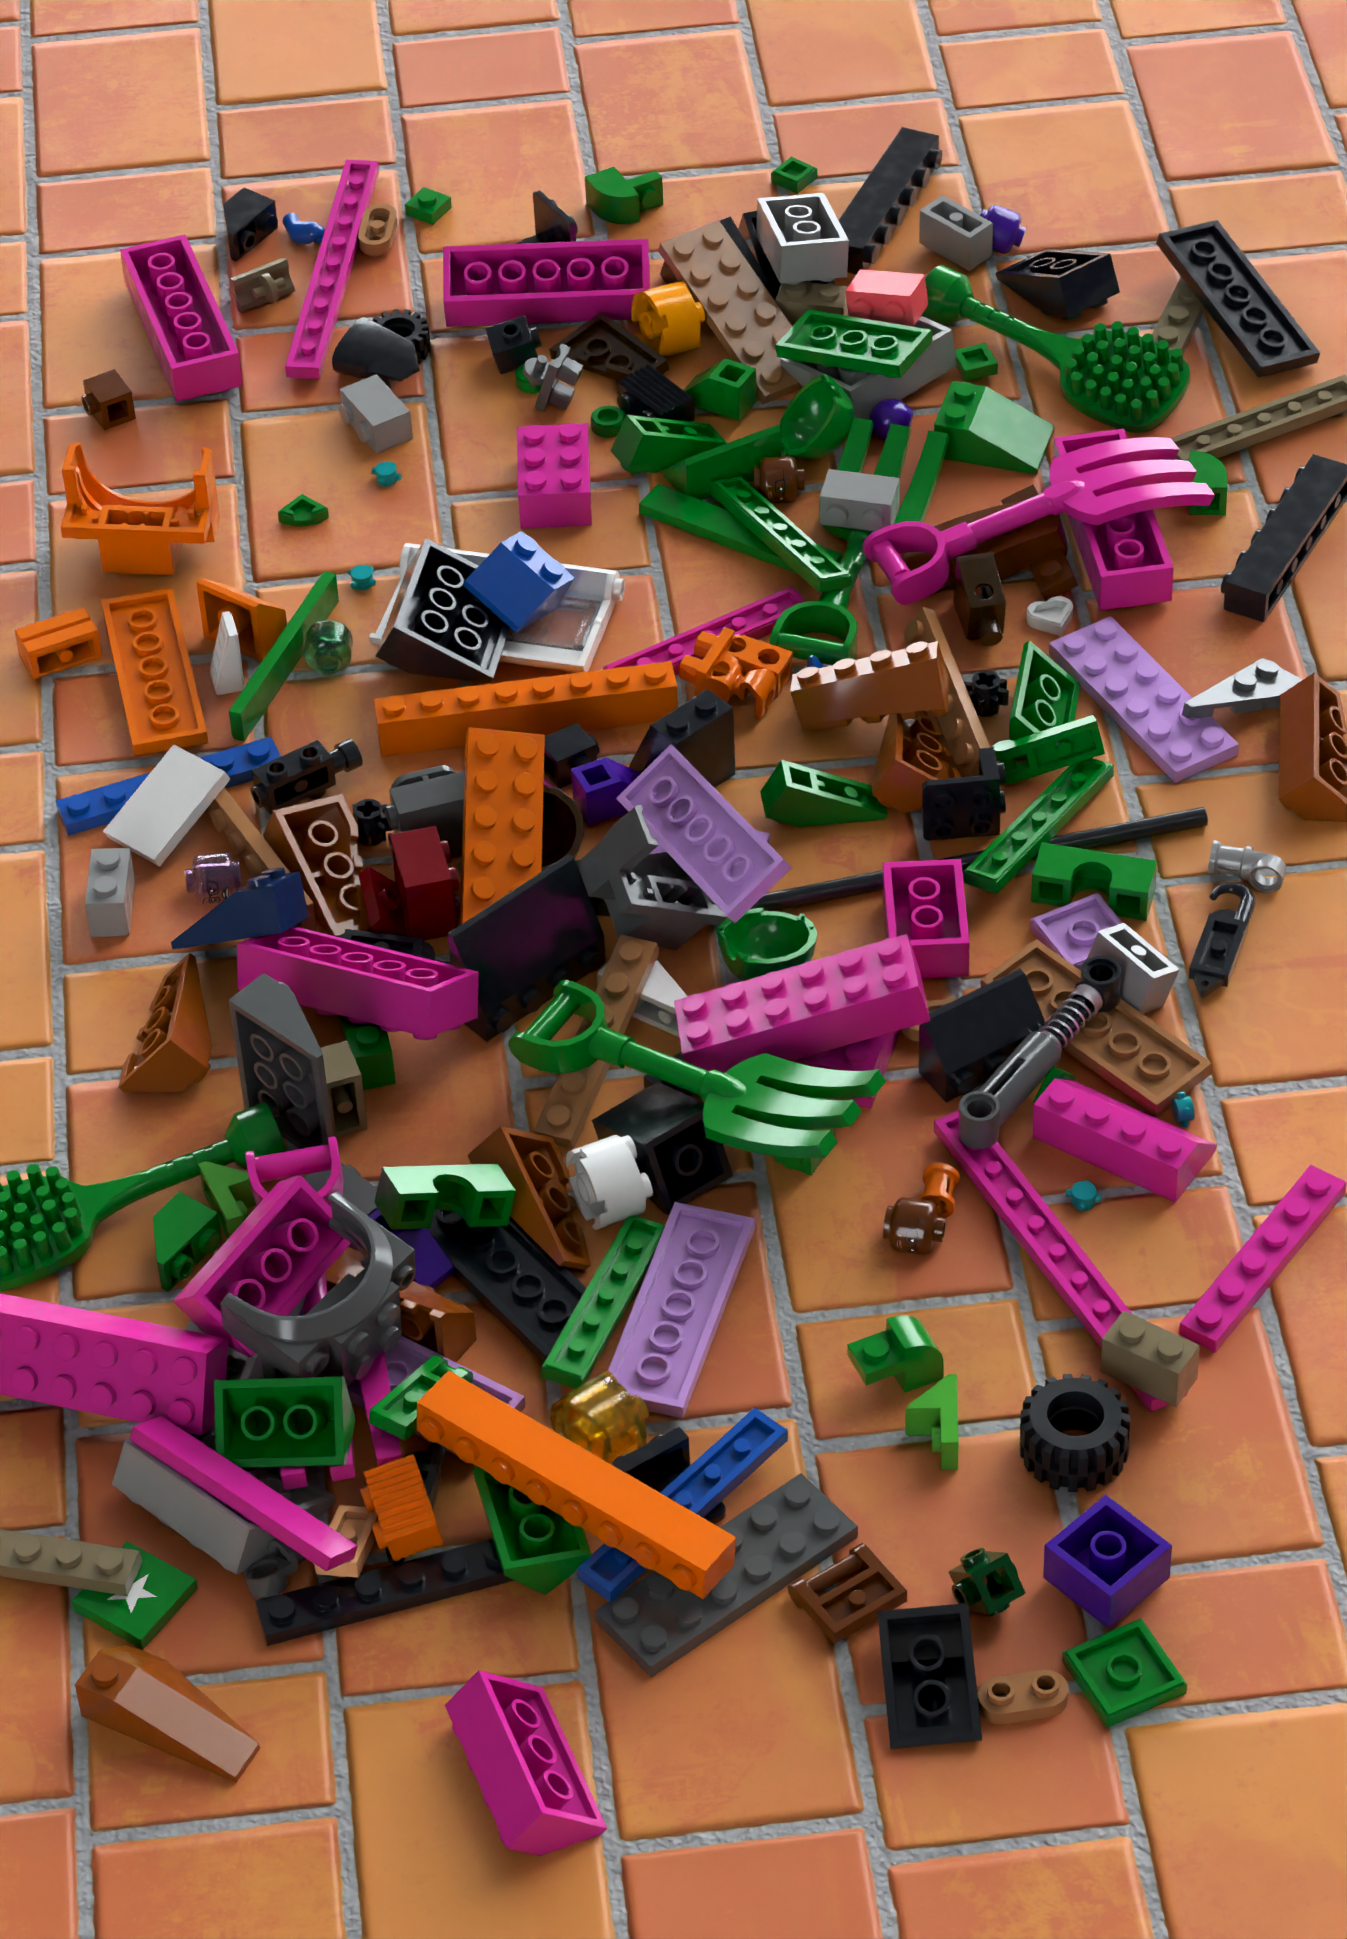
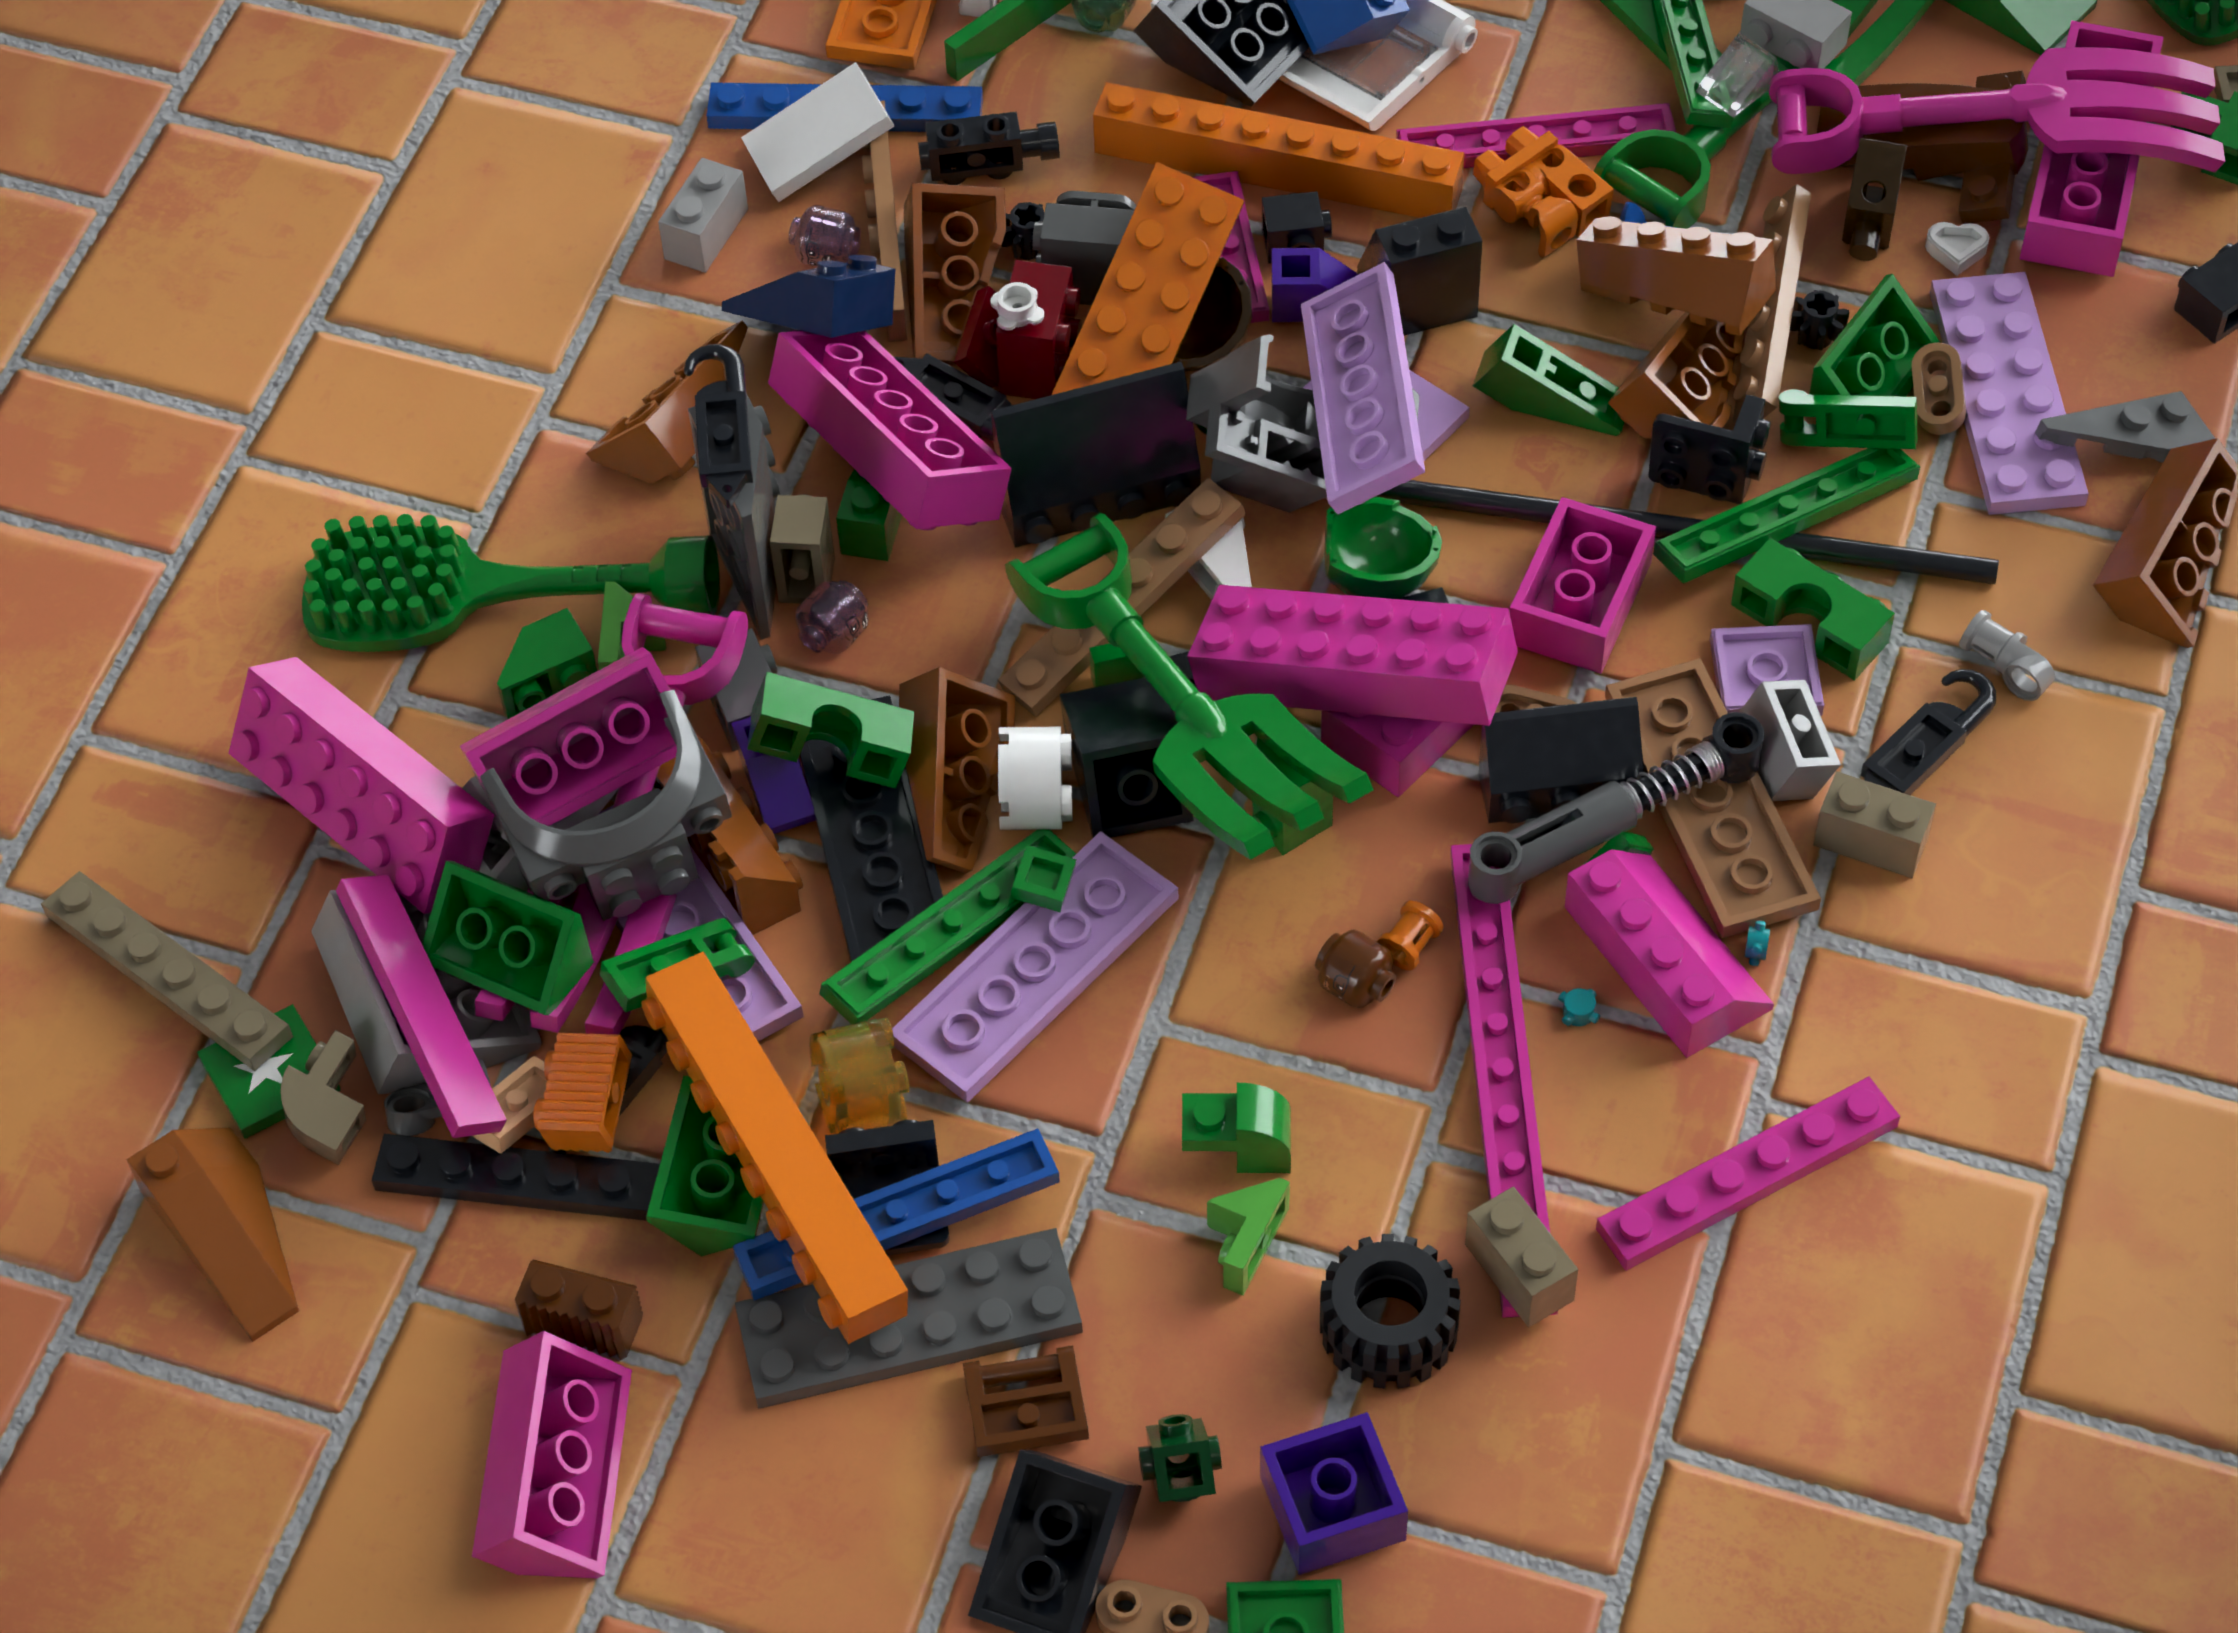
camera: 25 degrees right, 10 degrees up
(197, 1601) = (313, 1108): none -> dark tan brick
(268, 998) = (722, 425): none -> black plate
(383, 1130) = (832, 617): none -> head
(414, 862) = (1017, 306): none -> white plate
(487, 1648) = (579, 1308): none -> reddish brown brick
(616, 1087) = (1111, 666): none -> green tile
(655, 1245) = (1043, 878): none -> green tile
(842, 545) = (1739, 76): none -> clear slope
(1102, 707) = (1940, 391): none -> medium nougat plate
(1220, 1003) = (1874, 824): none -> dark tan brick

